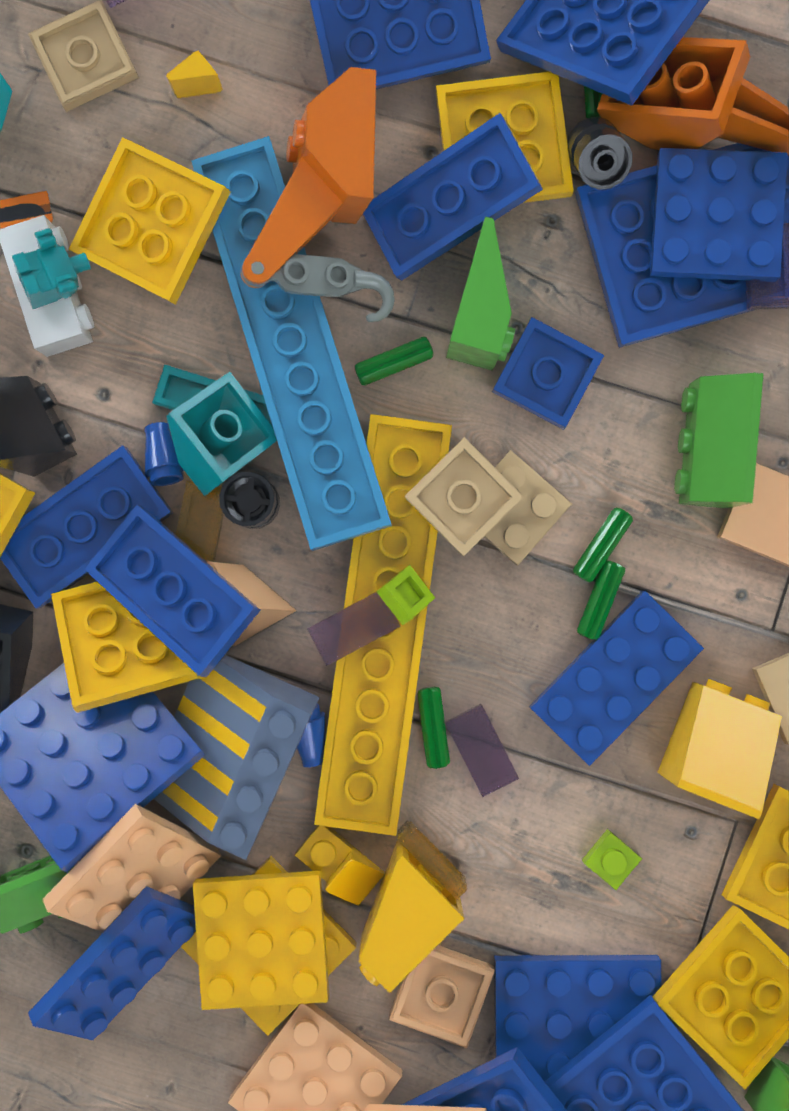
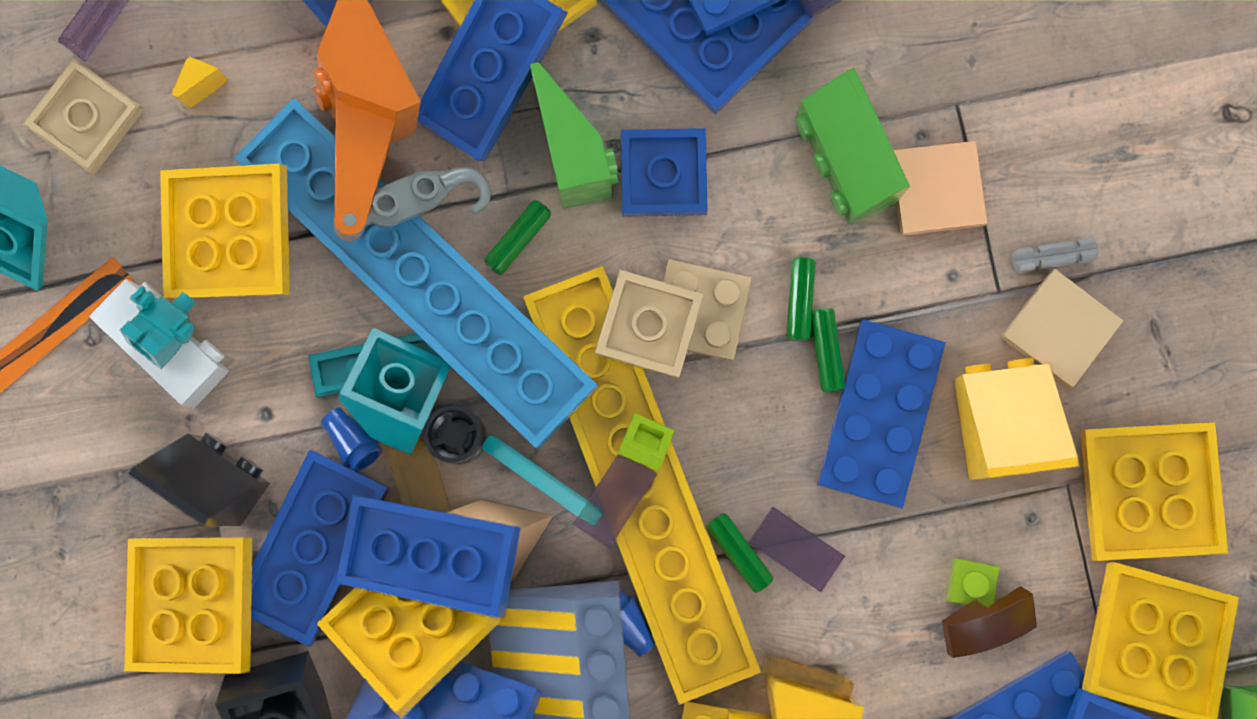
camera: 25 degrees left, 5 degrees down
(302, 579) = (542, 480): none -> teal tile
(598, 901) = (985, 628): none -> reddish brown slope

